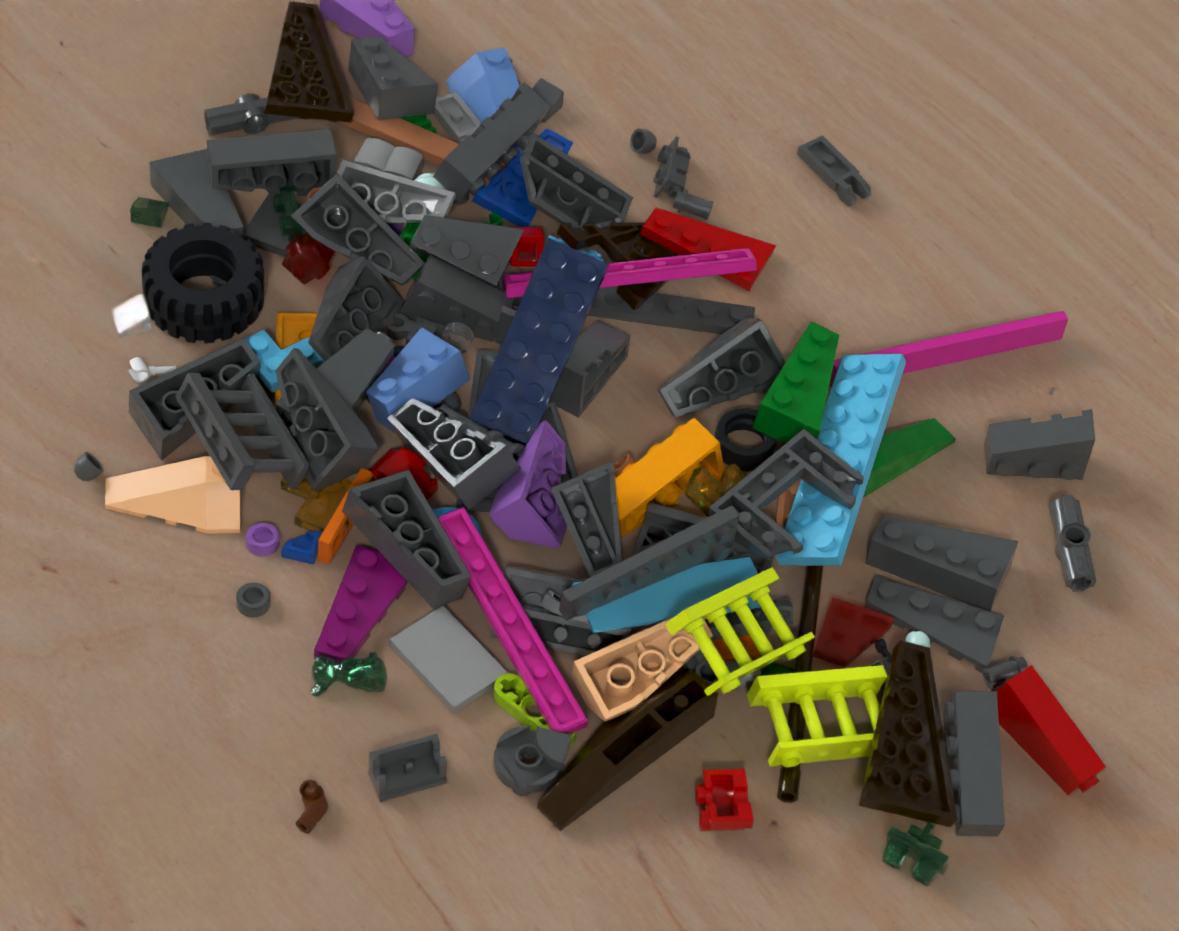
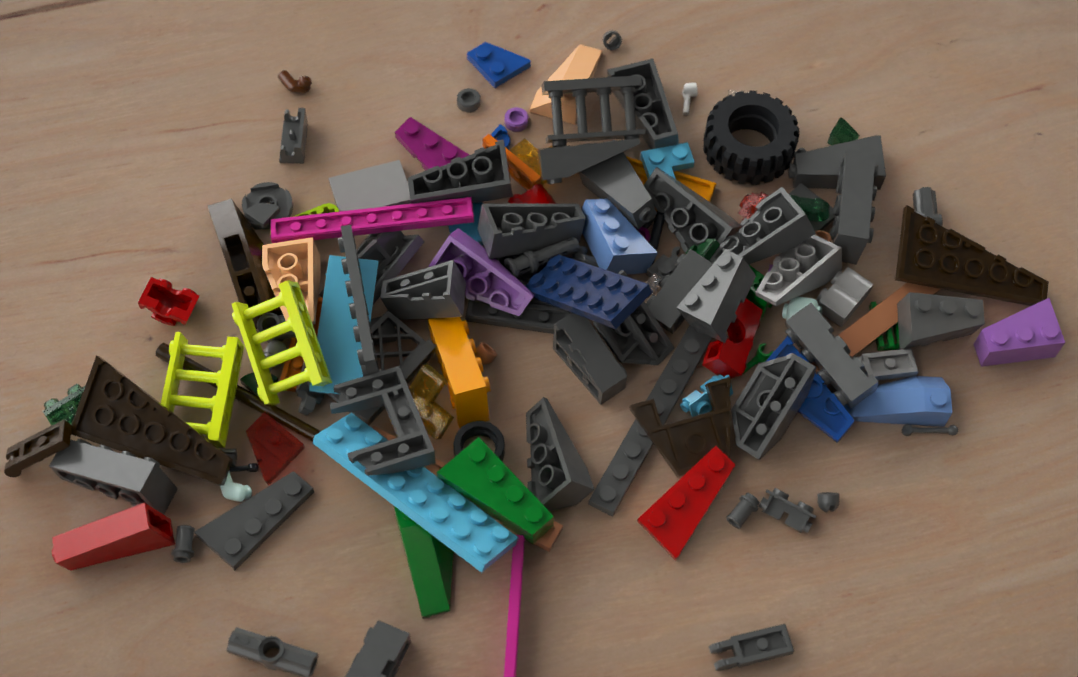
camera: 115 degrees right, 10 degrees up
(177, 586) = (497, 63): none -> blue wing
(359, 673) = (375, 134): clear green animal -> none
(395, 290) = (706, 248): none -> dark green tile
(551, 95) = (896, 439): dark grey slope -> none
(656, 270) = (659, 412): dark pink tile -> none
(943, 559) = (298, 541): dark grey wedge -> none
(990, 847) = (37, 448): none -> dark brown plate

